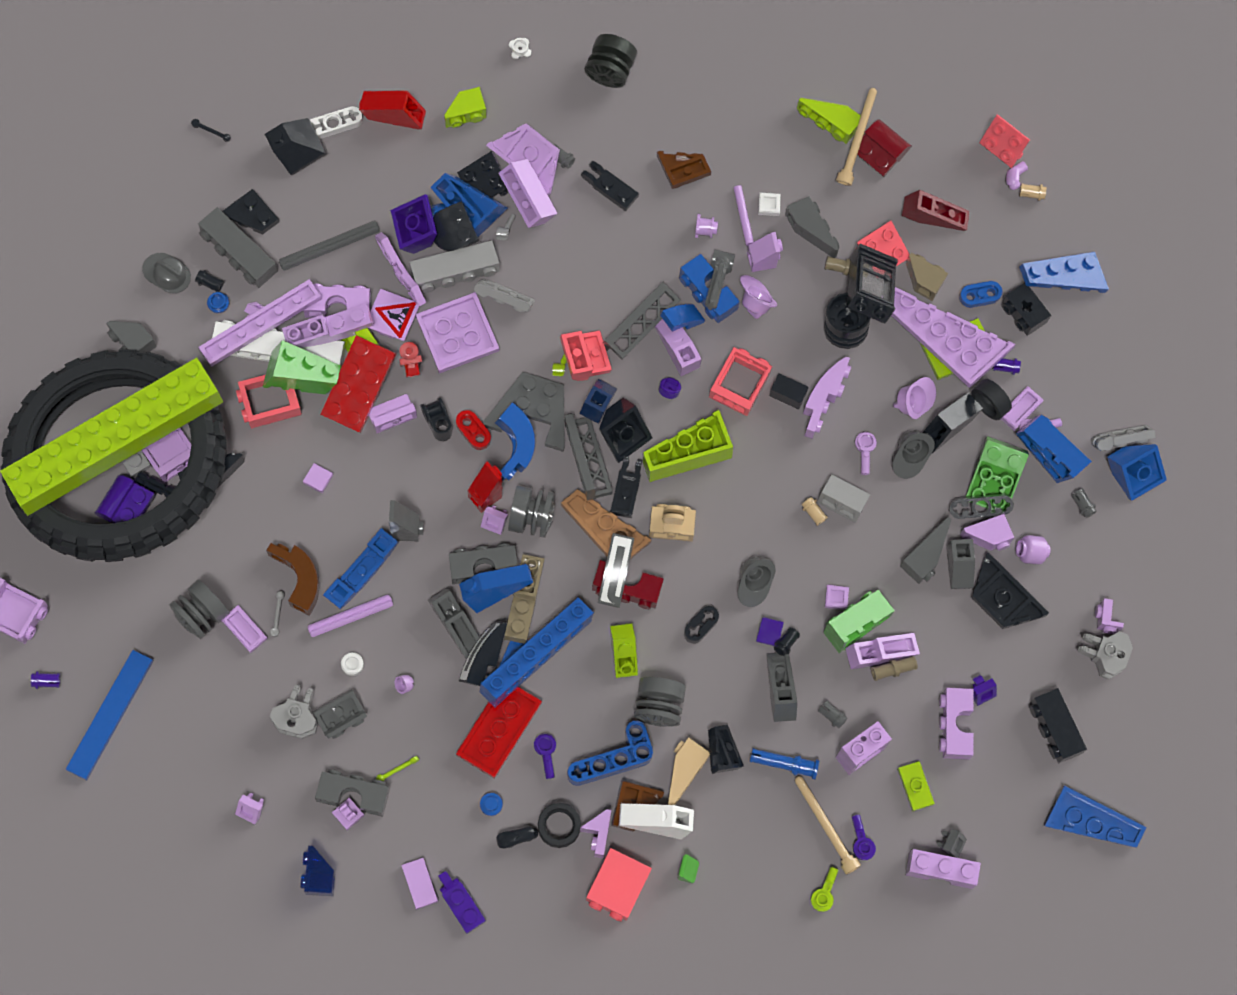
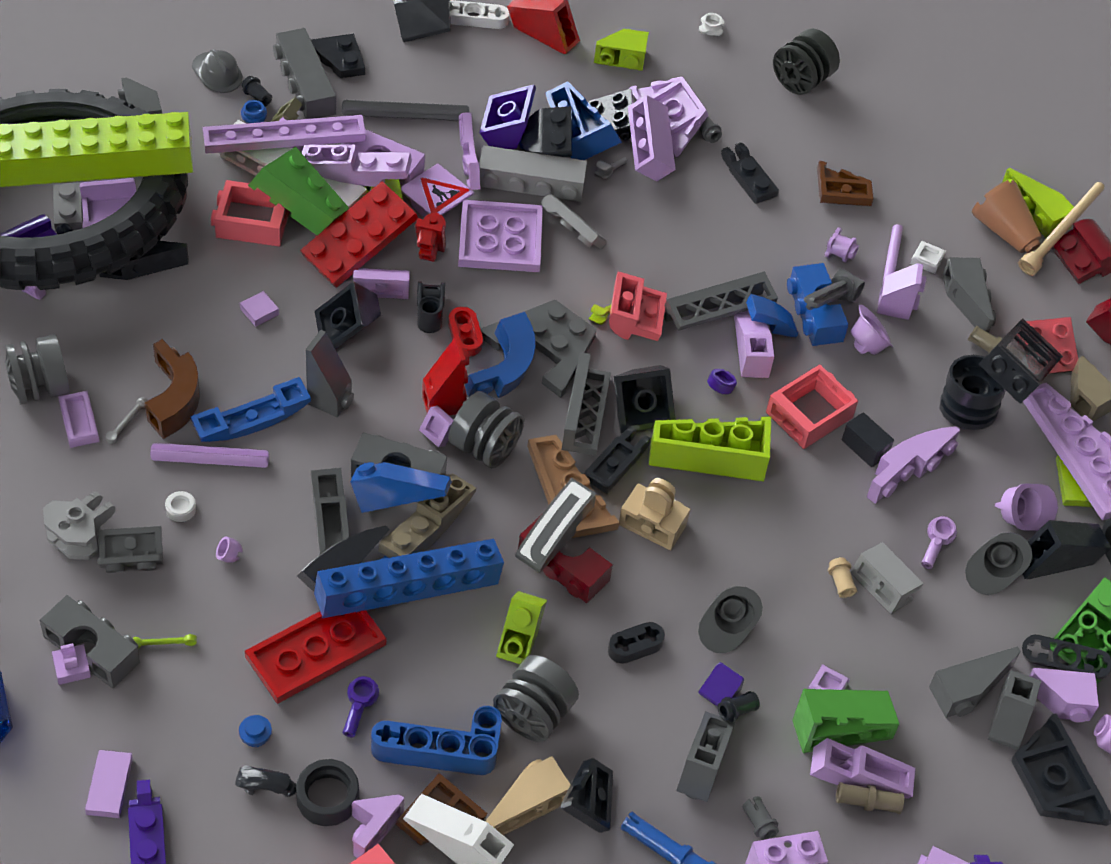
camera: 25 degrees right, 20 degrees down
(244, 293) = (288, 110): none -> olive plate
(386, 460) = (347, 313): none -> black slope
(598, 401) = (626, 353): dark blue slope -> none
(816, 144) = (1009, 217): none -> nougat cone

